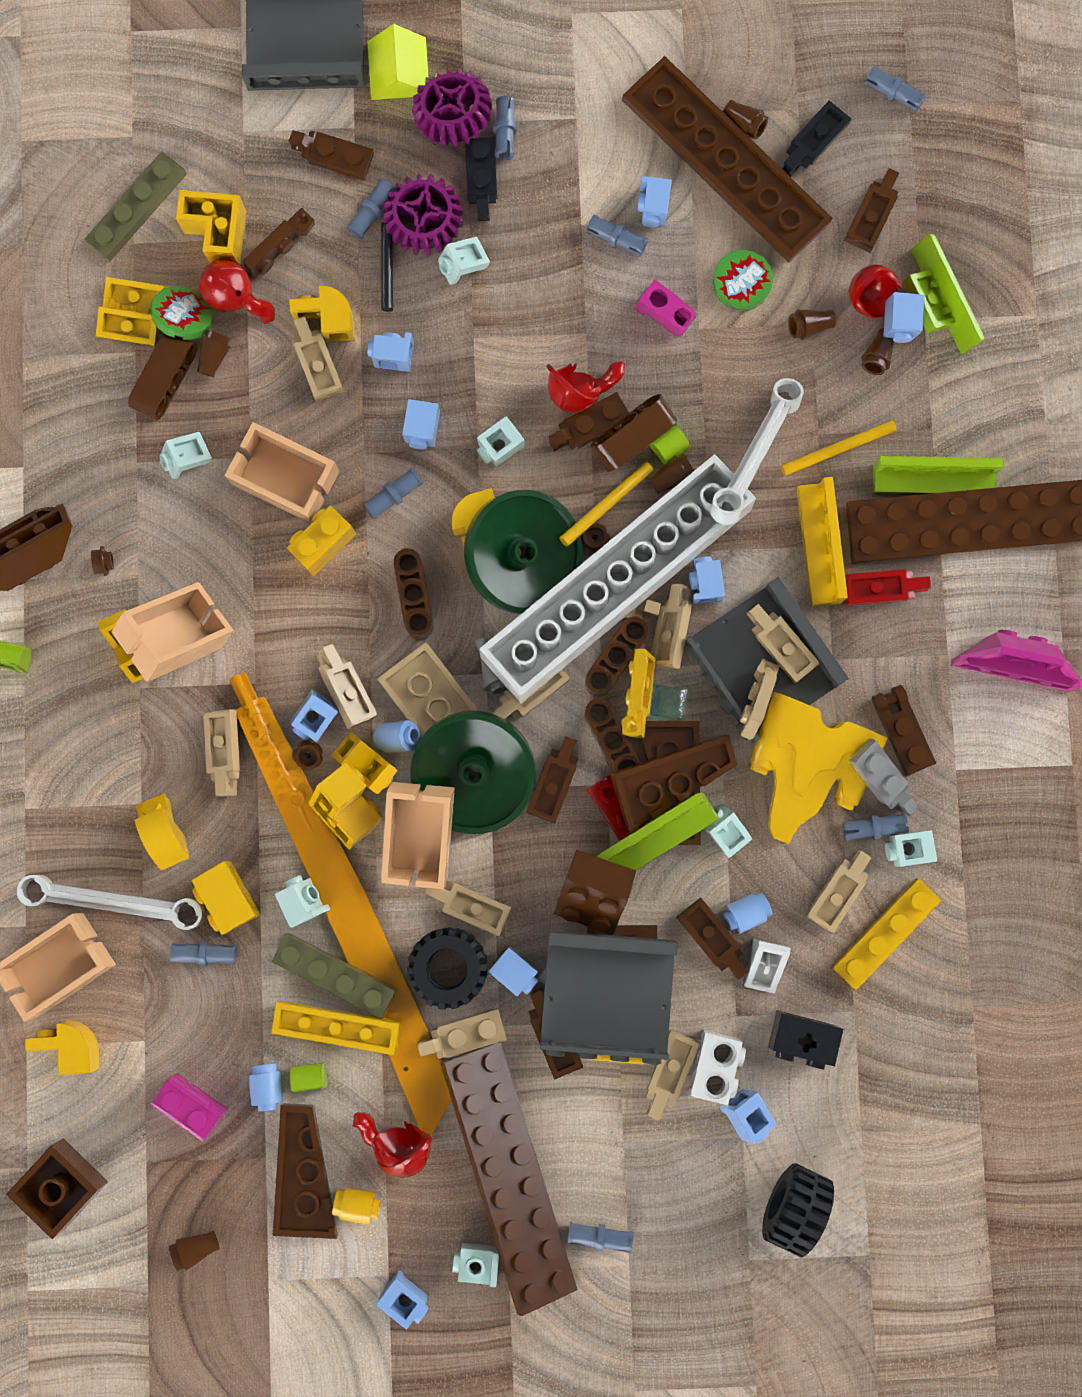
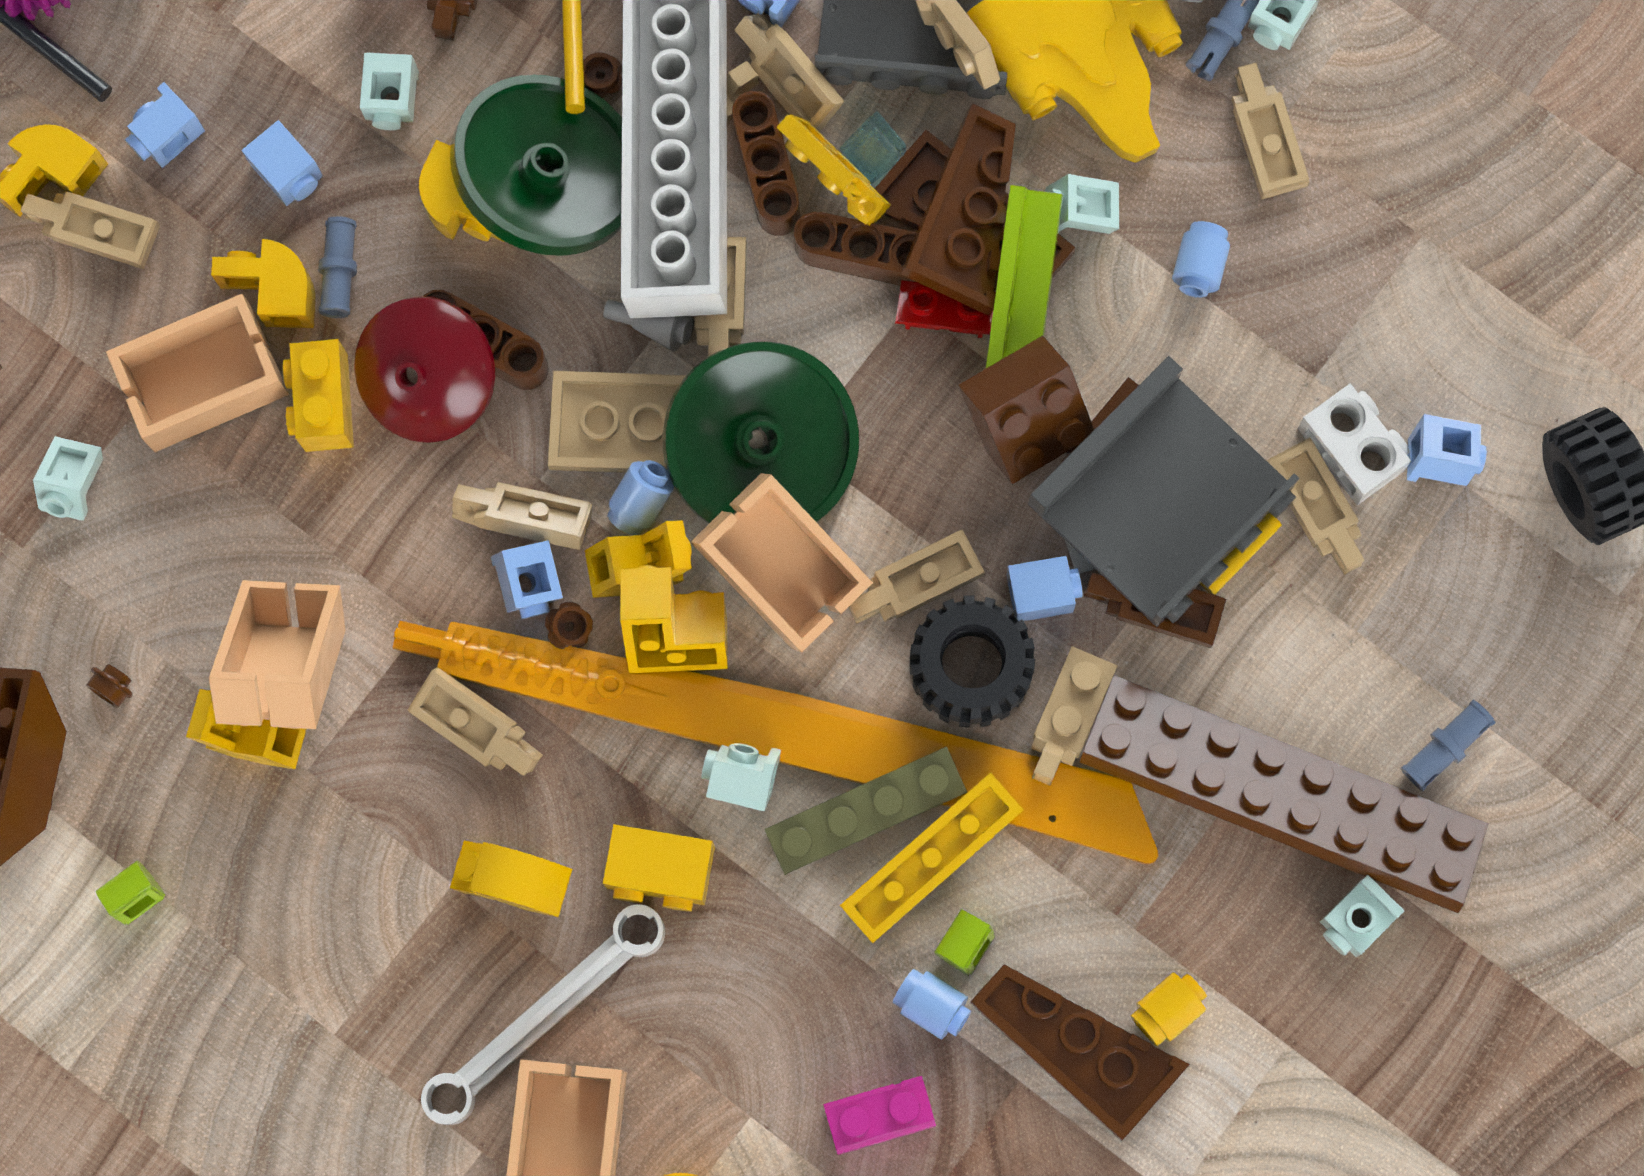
camera: 45 degrees left, 5 degrees down
(203, 953) = (704, 950): sand blue pin -> none
(363, 474) = (281, 279): none -> yellow brick
(386, 582) = (451, 366): none -> dark red dish
(397, 1150) = (1142, 902): red piece -> none
(401, 1312) = (1309, 1045): light blue brick -> none
(554, 782) = (854, 358): reddish brown hinge -> none
(712, 937) = (1198, 324): reddish brown hinge -> none
(766, 965) = (1281, 286): white slope -> none
(824, 1039) = (1421, 290): black brick -> none
(886, 934) = (1361, 124): yellow plate -> none

